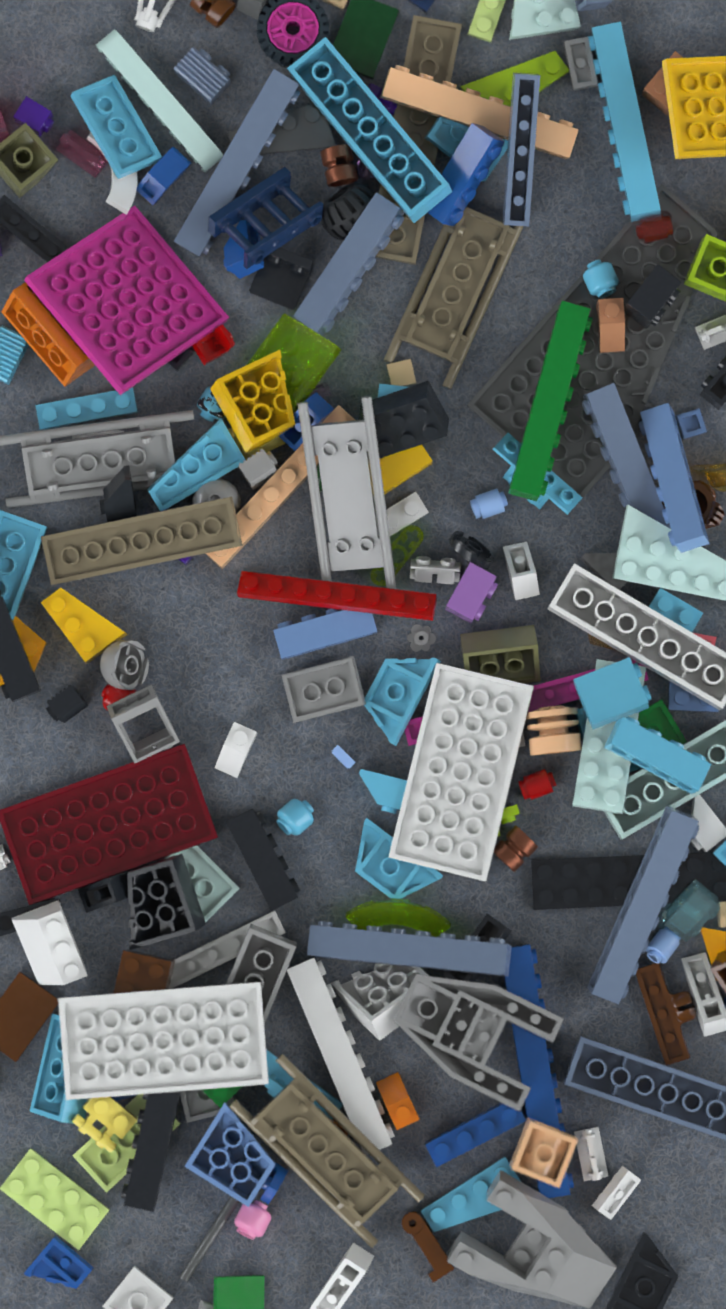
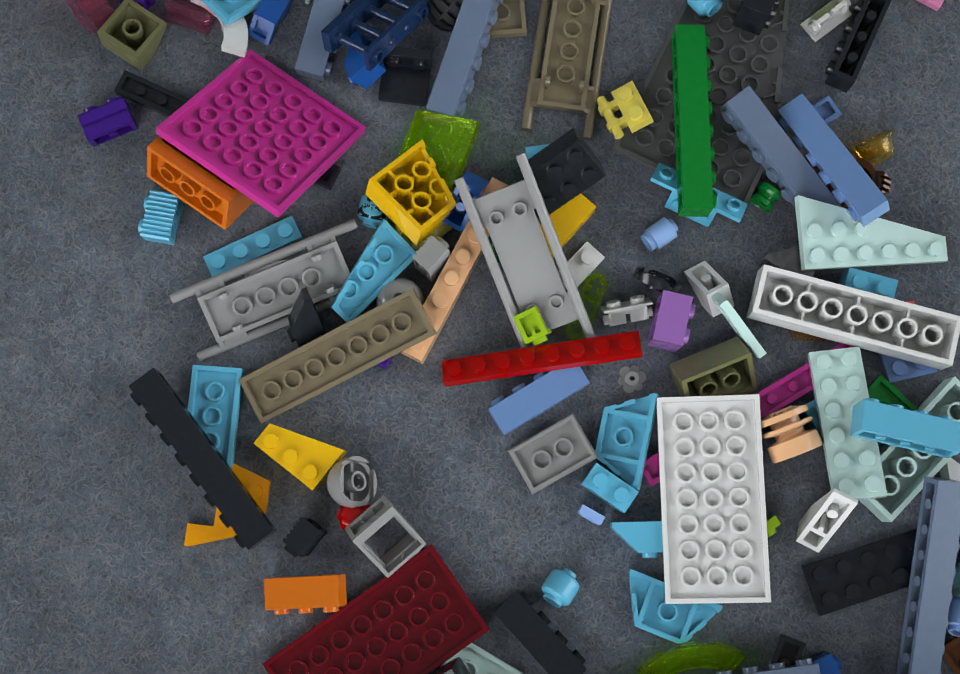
camera: 15 degrees left, 5 degrees down
(53, 756) = (305, 593): none -> orange brick
(214, 345) = (358, 155): red bracket -> none
(235, 749) = (483, 536): white slope -> none
(336, 562) = (532, 326): none -> lime bracket
(367, 736) = (609, 488): none -> medium azure brick
(401, 373) = (541, 134): tan tile -> none
(497, 370) = (631, 106): none -> light yellow plate
(515, 848) = (785, 559): copper wheel -> none
(535, 615) = (738, 325): none -> light aqua tile
(537, 784) = (786, 490): red brick -> none
(558, 820) = (824, 519): none -> white slope
(603, 495) = (765, 197): none -> green wheel
(611, 325) = (726, 36): nougat slope -> none
(612, 693) = (839, 379): medium azure brick -> none

